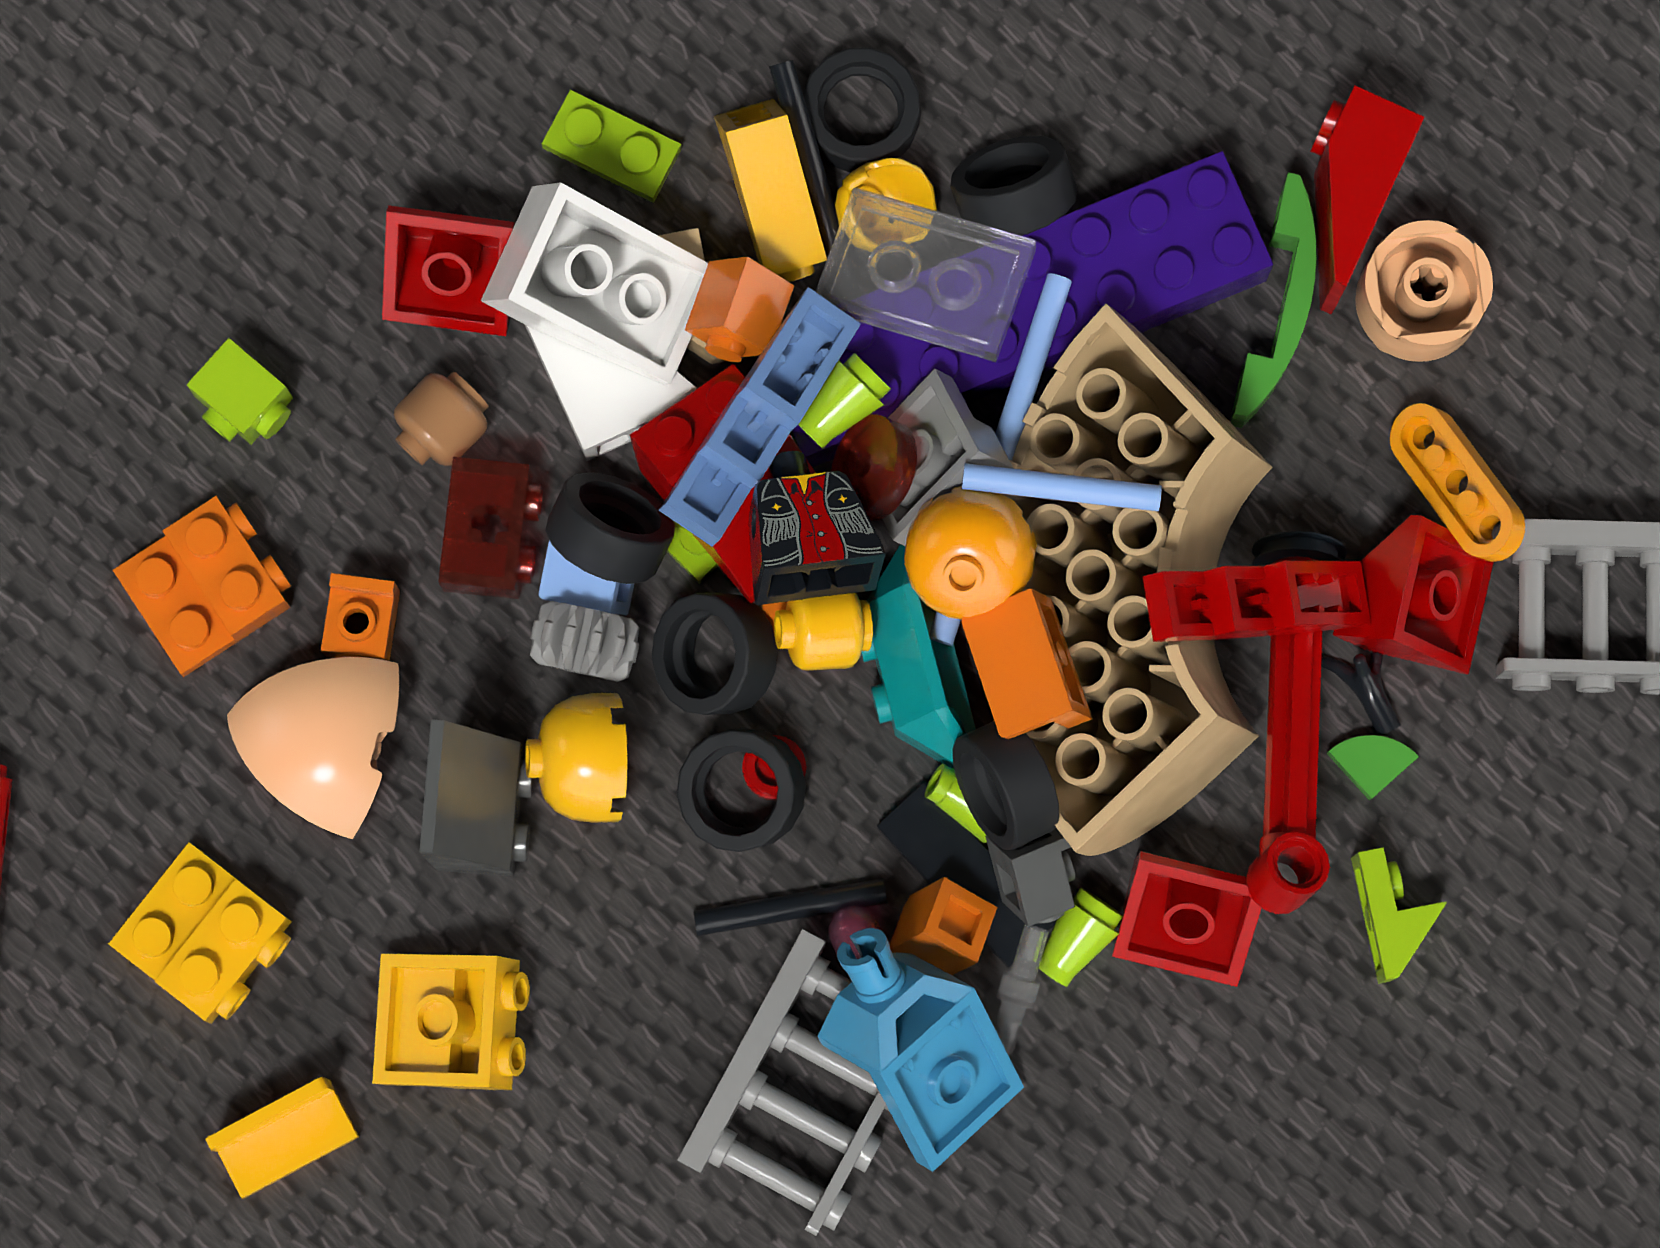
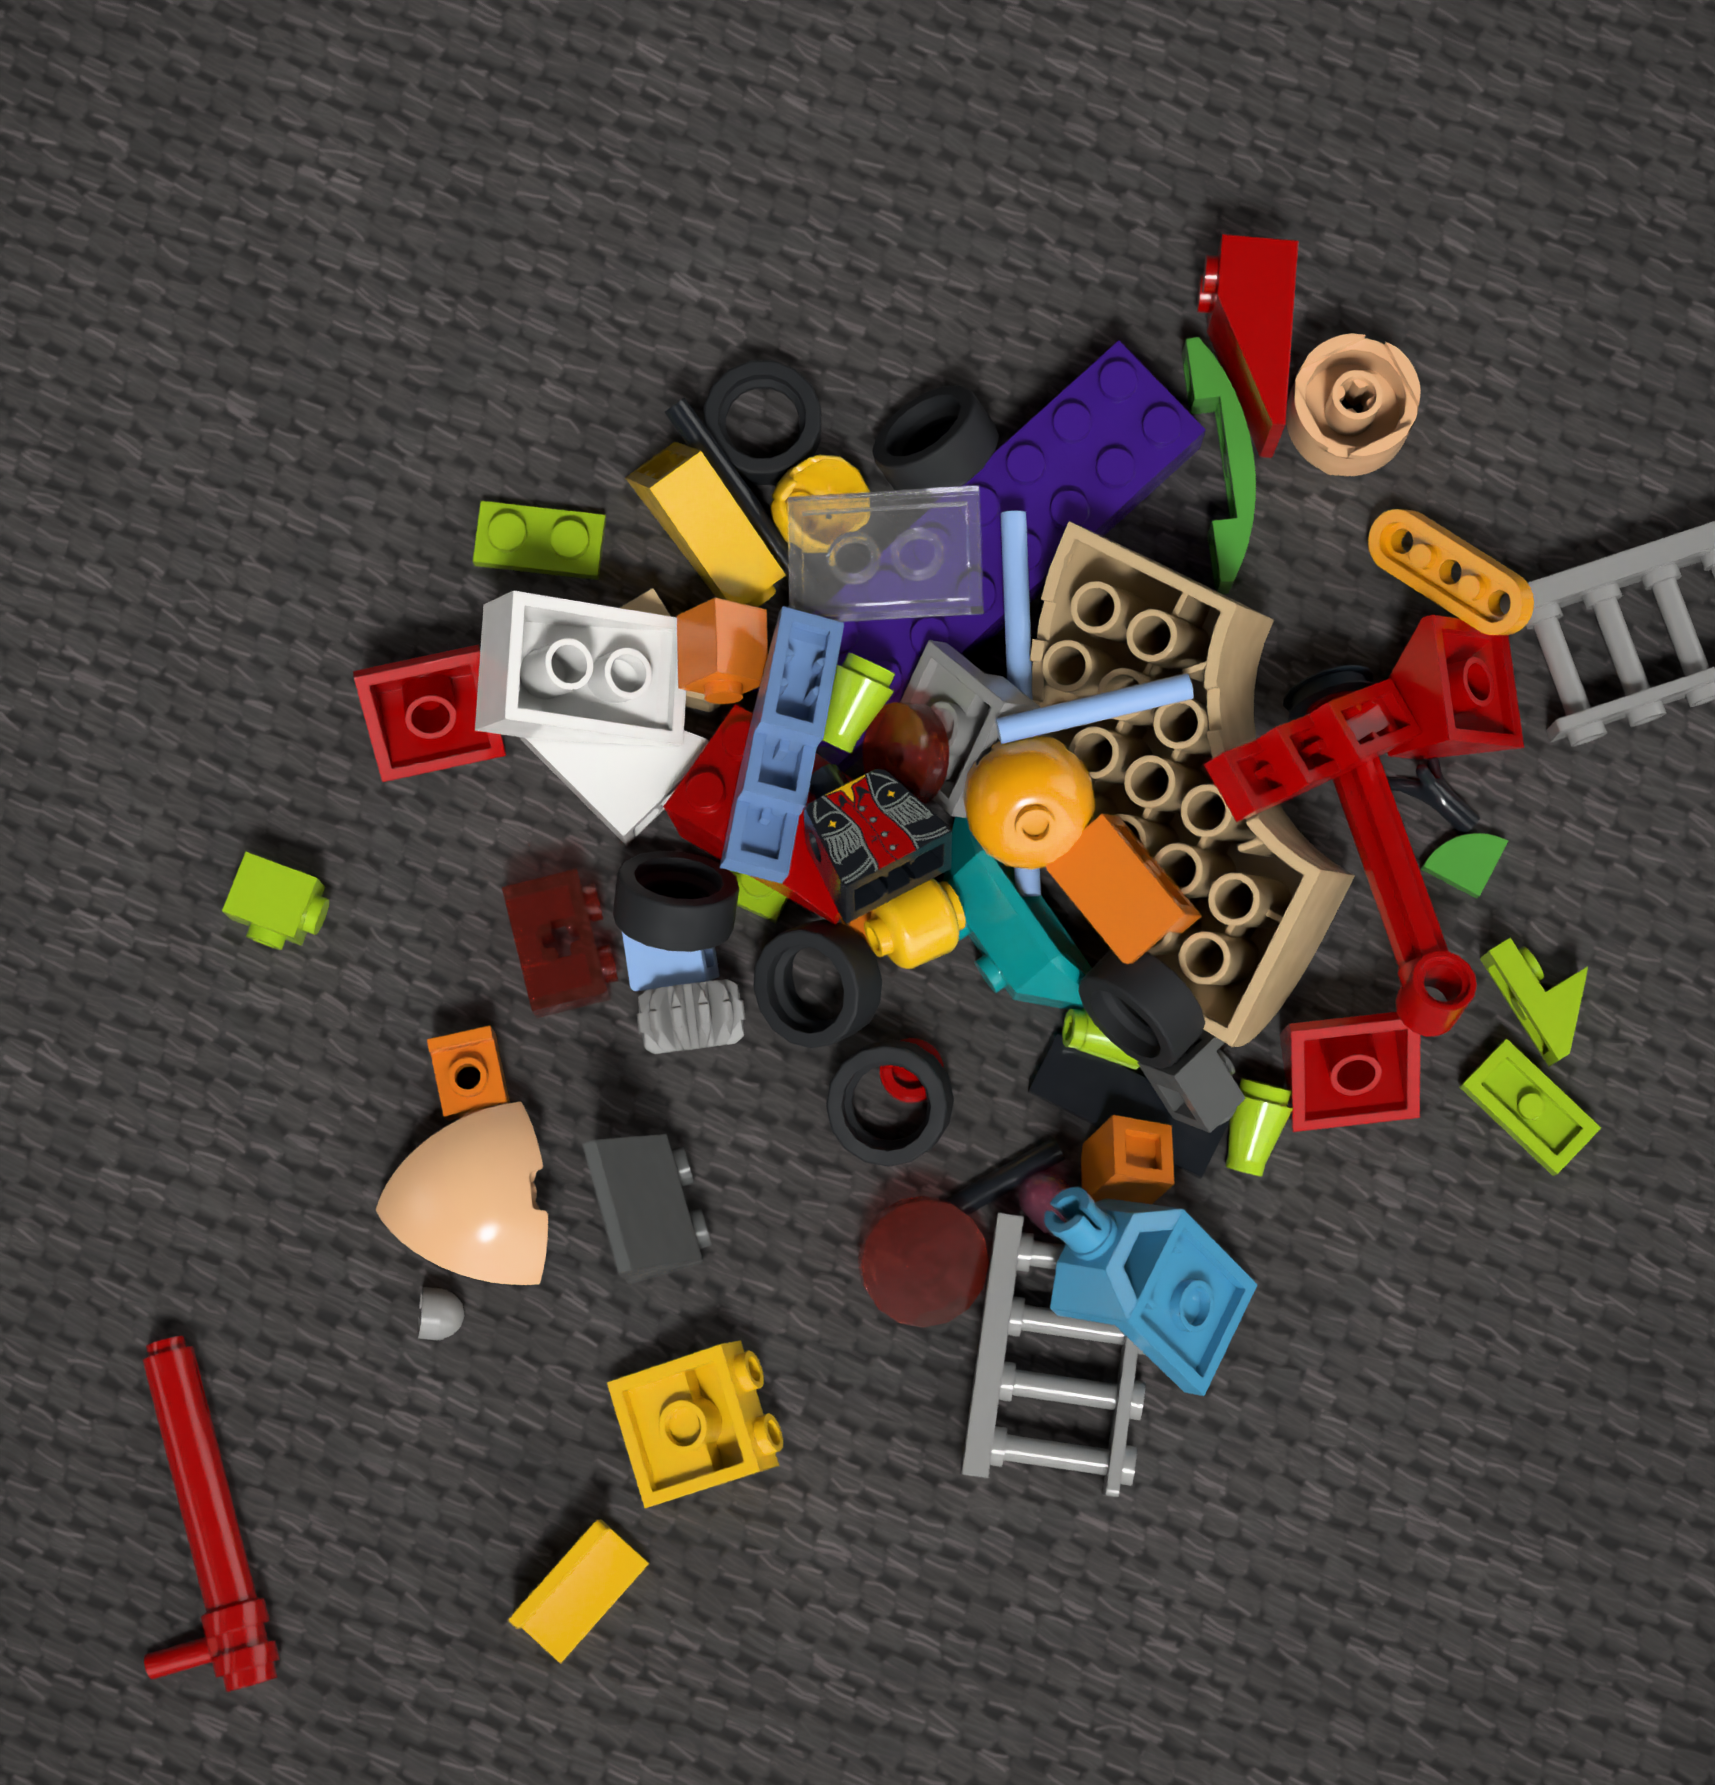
camera: 20 degrees left, 0 degrees up
(202, 935) = (430, 1427): yellow plate -> none
(204, 585) = (307, 1094): orange plate -> none
(250, 833) = (440, 1314): none -> light grey hinge
(440, 419) = (475, 856): medium nougat head -> none
(581, 758) = (731, 1127): yellow cylinder -> none
(717, 949) = (923, 1261): none -> clear red tile
(1019, 986) = (1218, 1191): clear bar -> none
(1344, 1015) = (1530, 1107): none -> lime plate

